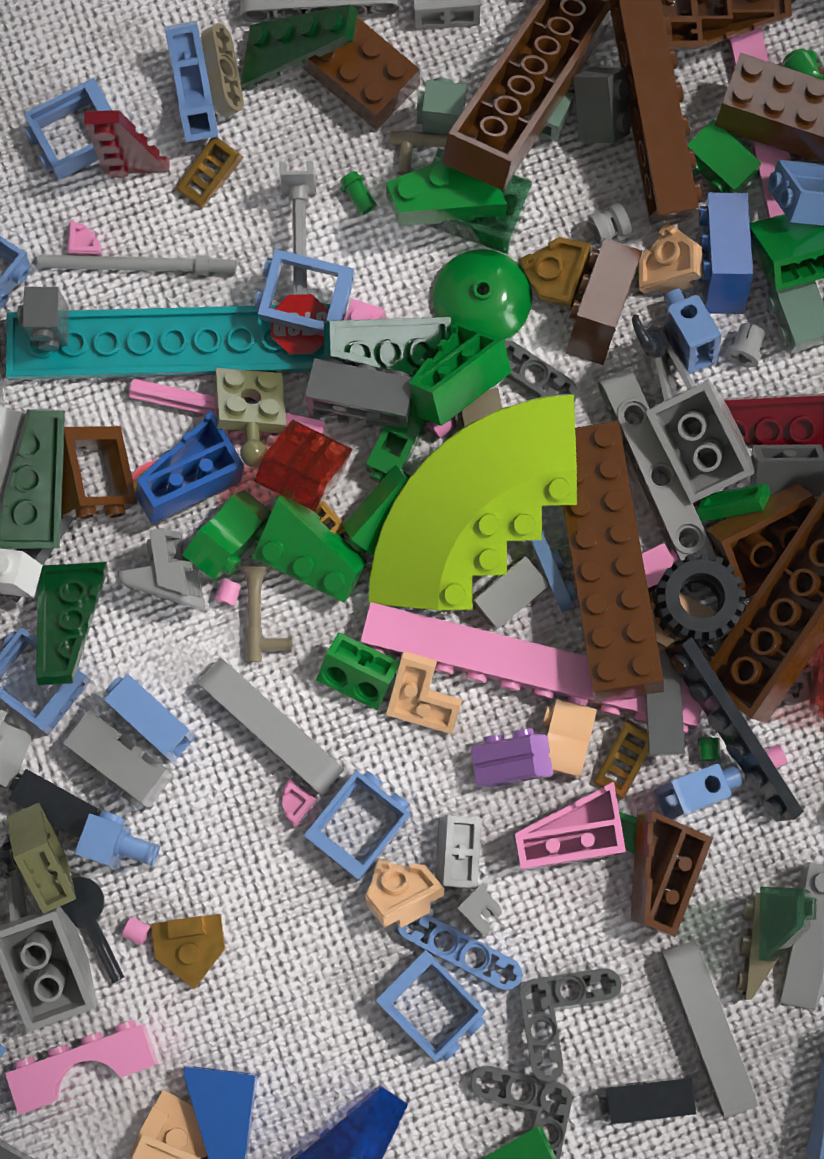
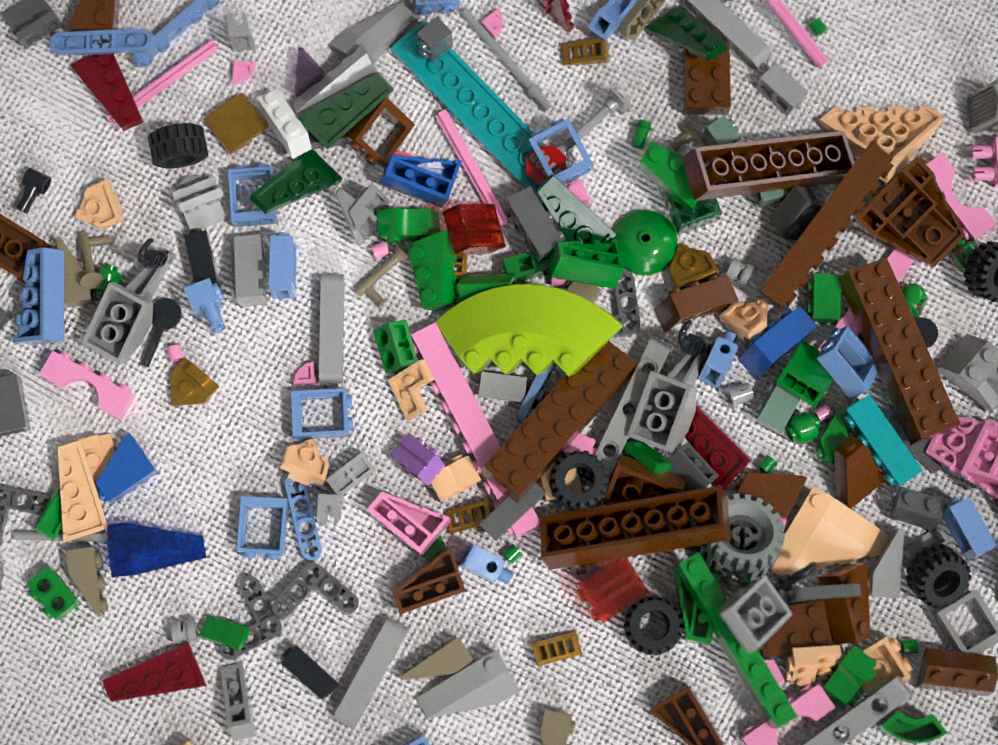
camera: 45 degrees right, 0 degrees up
(40, 858) = (166, 275): olive window -> none
(237, 414) = (471, 175): olive plate -> none
(733, 729) = (526, 564): black plate -> none
(776, 755) = (536, 589): bright pink piece -> none
(783, 919) = (451, 658): clear green slope -> none

